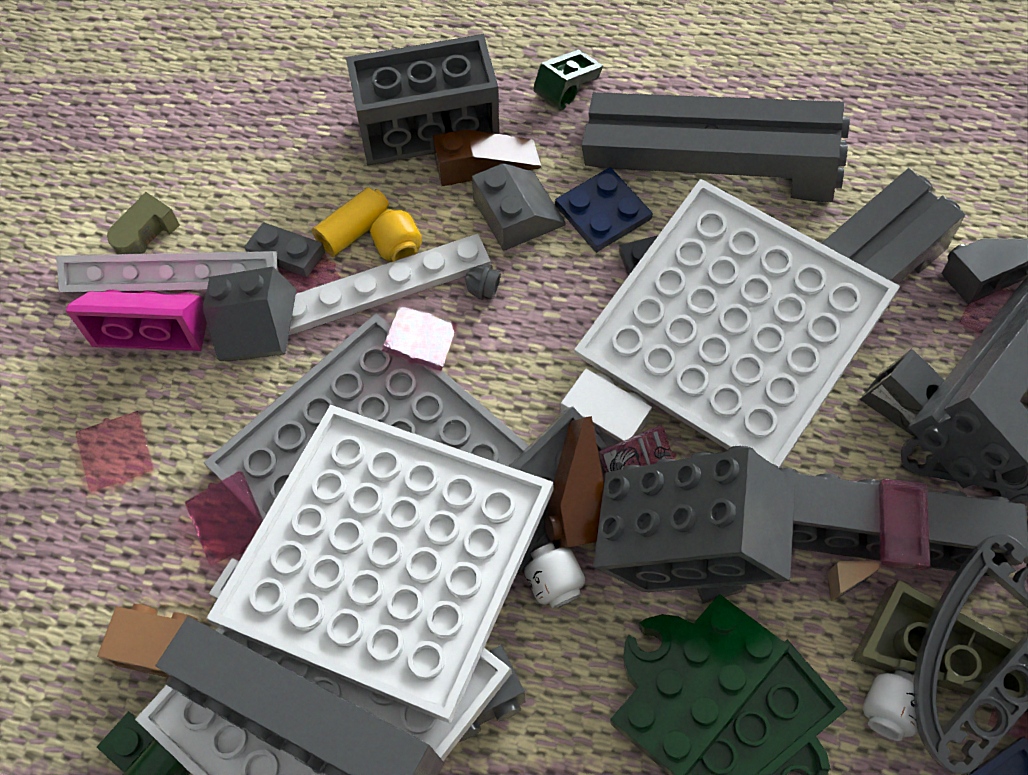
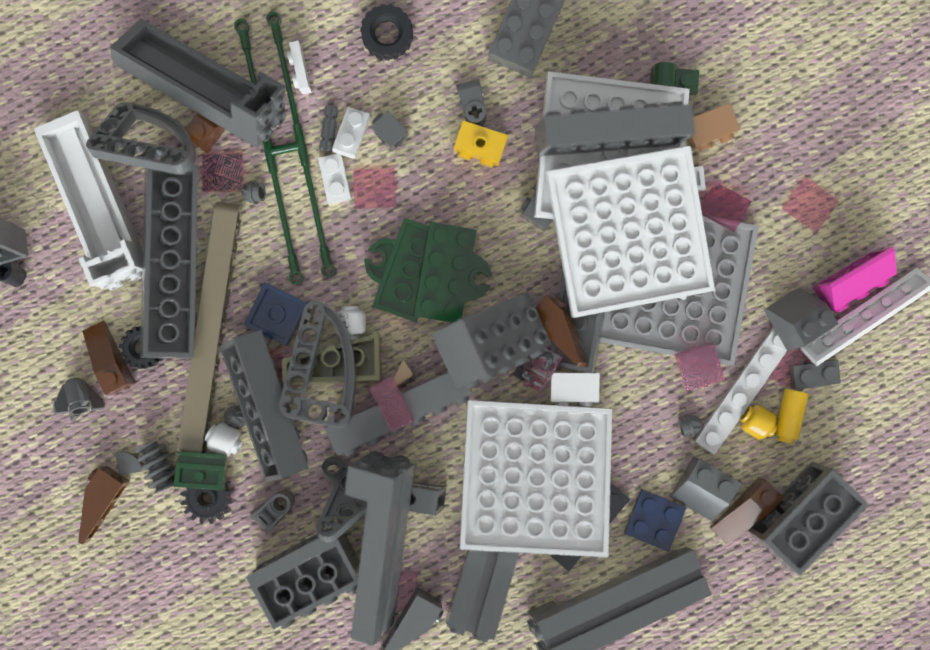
camera: 150 degrees right, 25 degrees up
(141, 225) = (907, 333): olive leg -> none
(554, 576) = (544, 281): white head -> none
(562, 76) = (739, 599): dark green plate -> none

